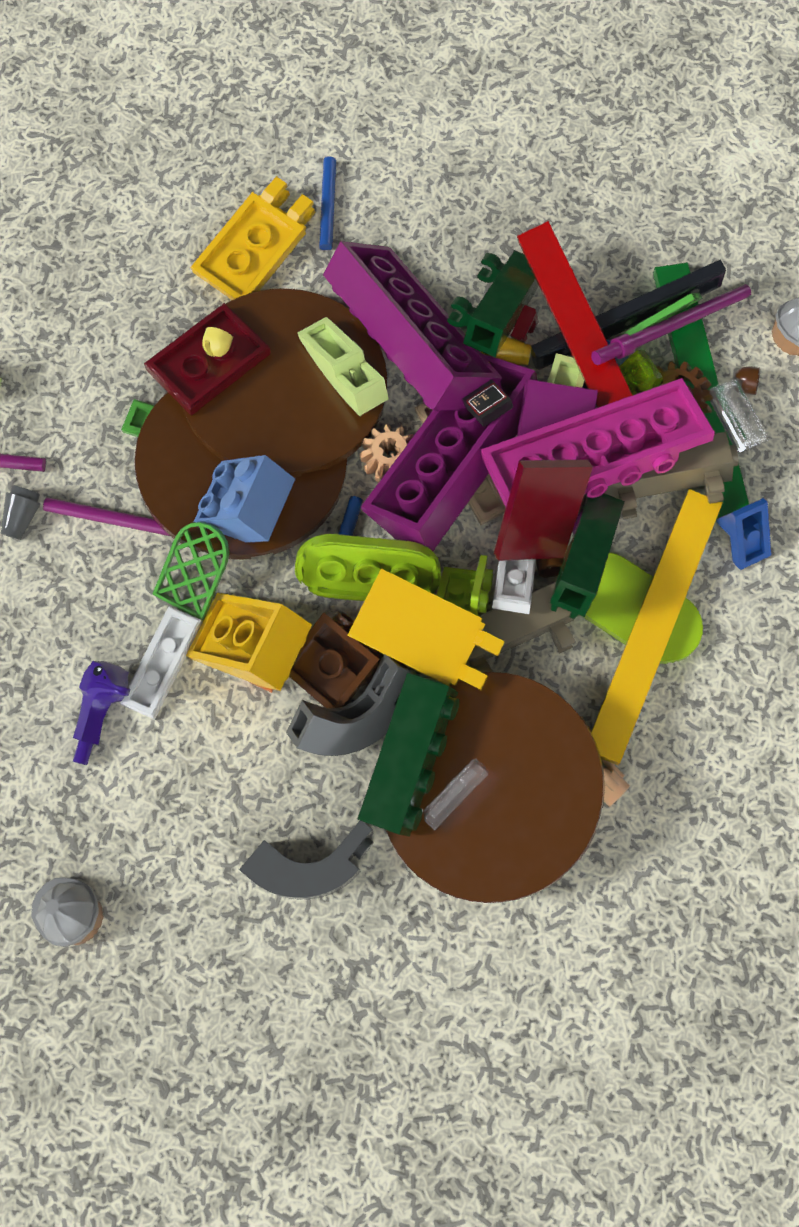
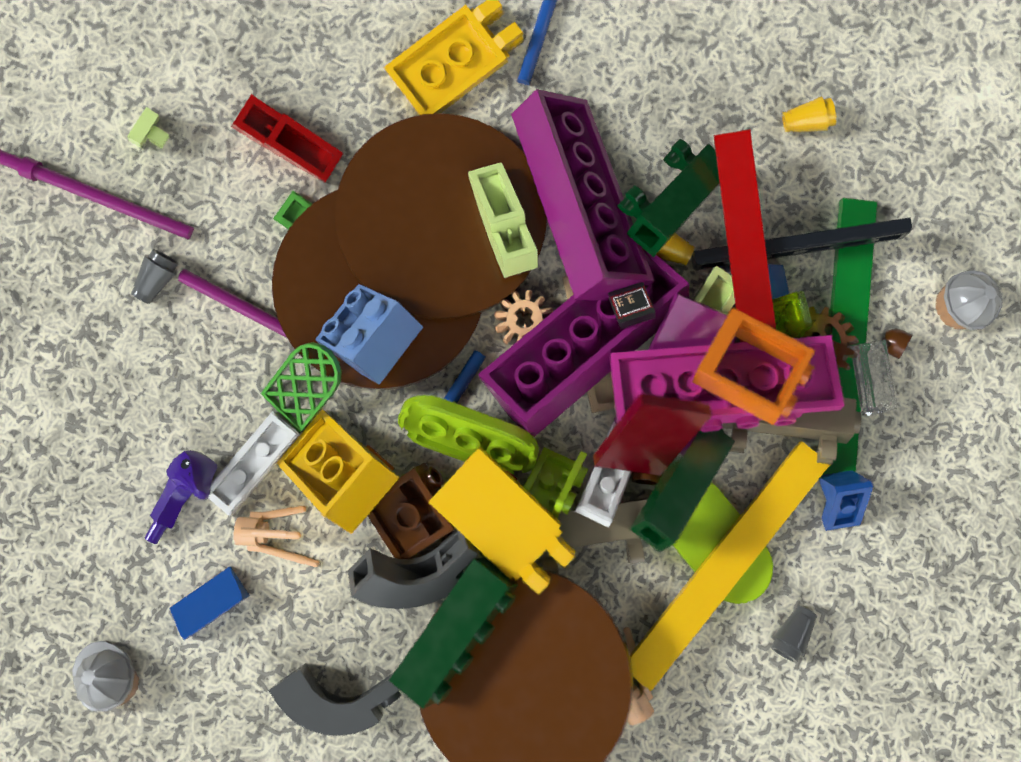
camera: 10 degrees right, 10 degrees up
(108, 351) = (287, 138): none -> red slope
(154, 809) = (208, 603): none -> blue slope
(182, 723) = (253, 532): none -> light nougat plant
(195, 376) = (372, 174): dark red tile -> none
(216, 341) = (383, 164): light yellow hinge -> none
(455, 793) = (487, 683): clear tile -> none
(525, 324) = (695, 223): dark red tile -> none
(601, 205) = (810, 116): none -> yellow cone
(625, 394) = (767, 340): none -> orange window
(626, 344) = (787, 282): magenta bar -> none
(667, 312) = (830, 258): bright green window -> none
(742, 674) = (794, 635): none -> dark grey cone

